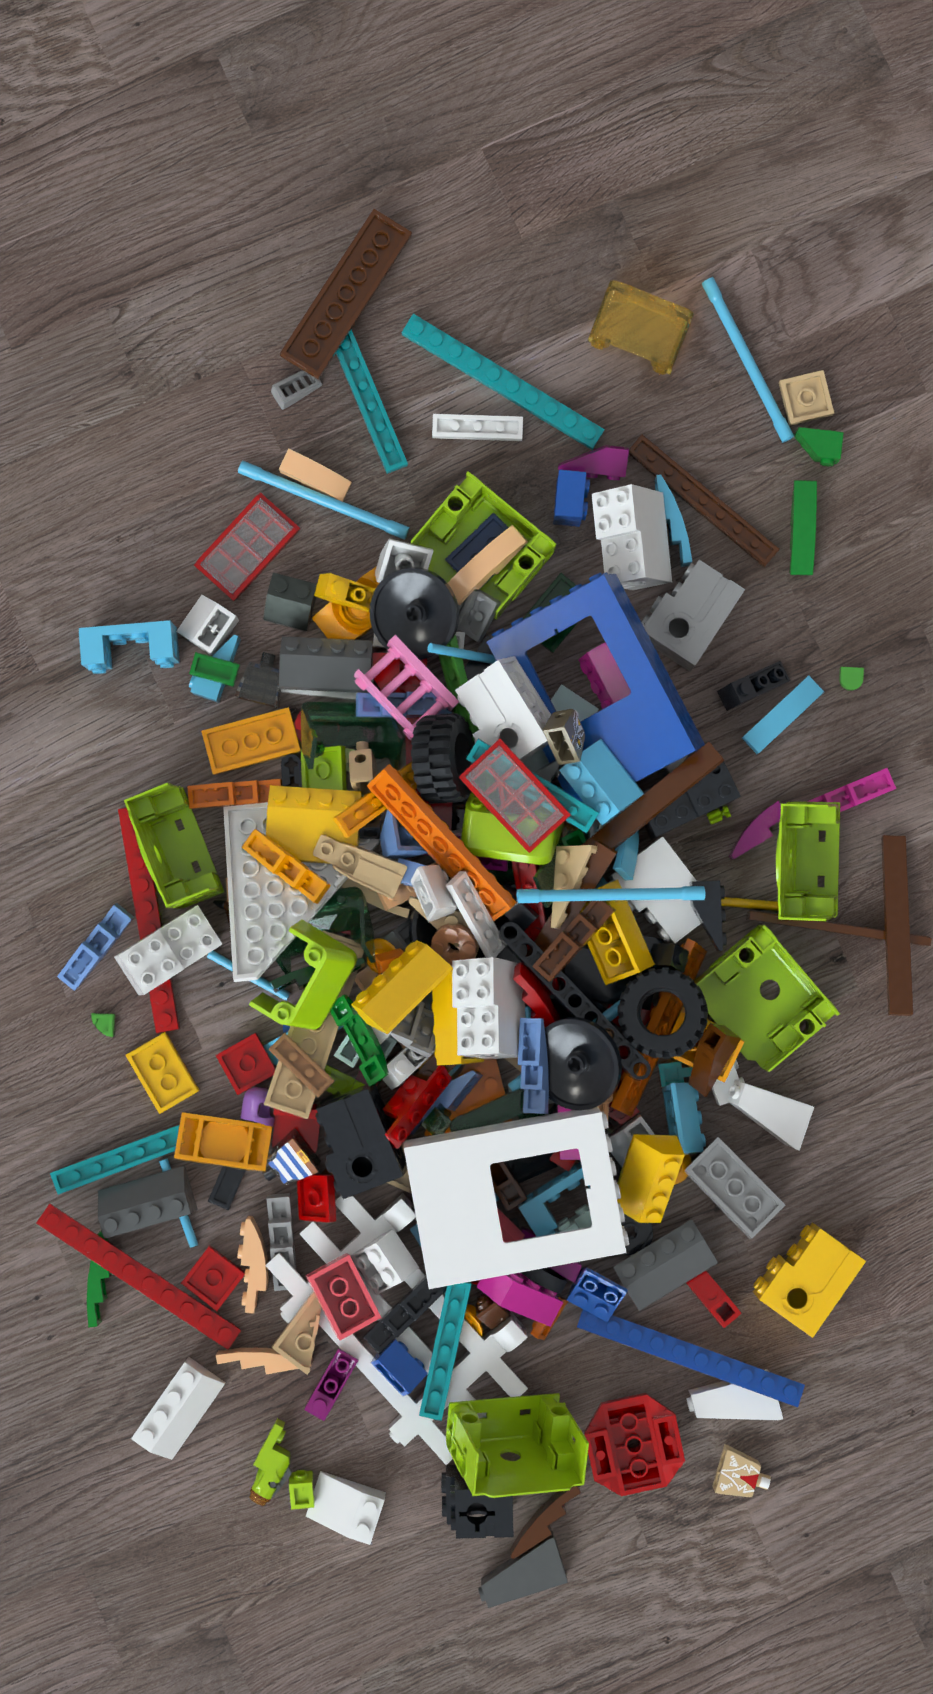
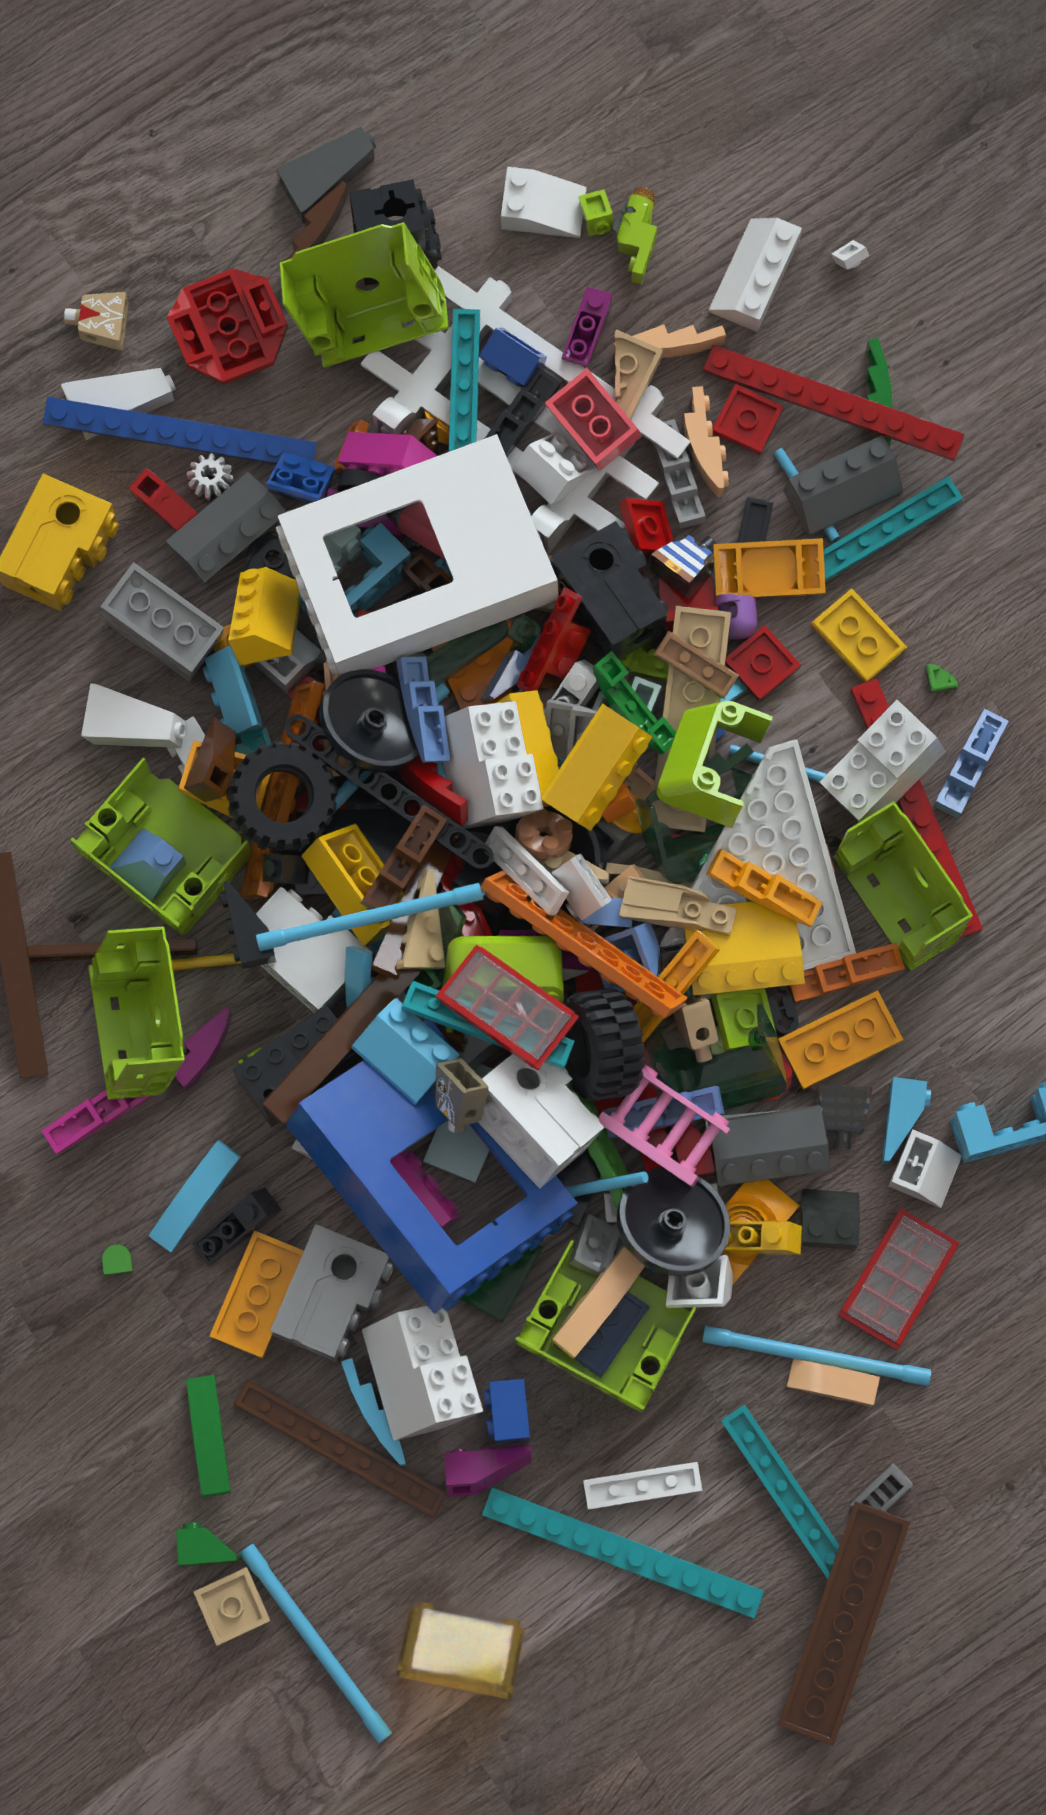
camera: 170 degrees right, 10 degrees down
(95, 1408) = (850, 255): none -> white plate
(214, 669) = (903, 1112): green tile -> none
(677, 1307) = (202, 483): none -> white gear
(746, 629) = (256, 1294): none -> light orange plate
(778, 988) = (148, 864): none -> medium blue slope

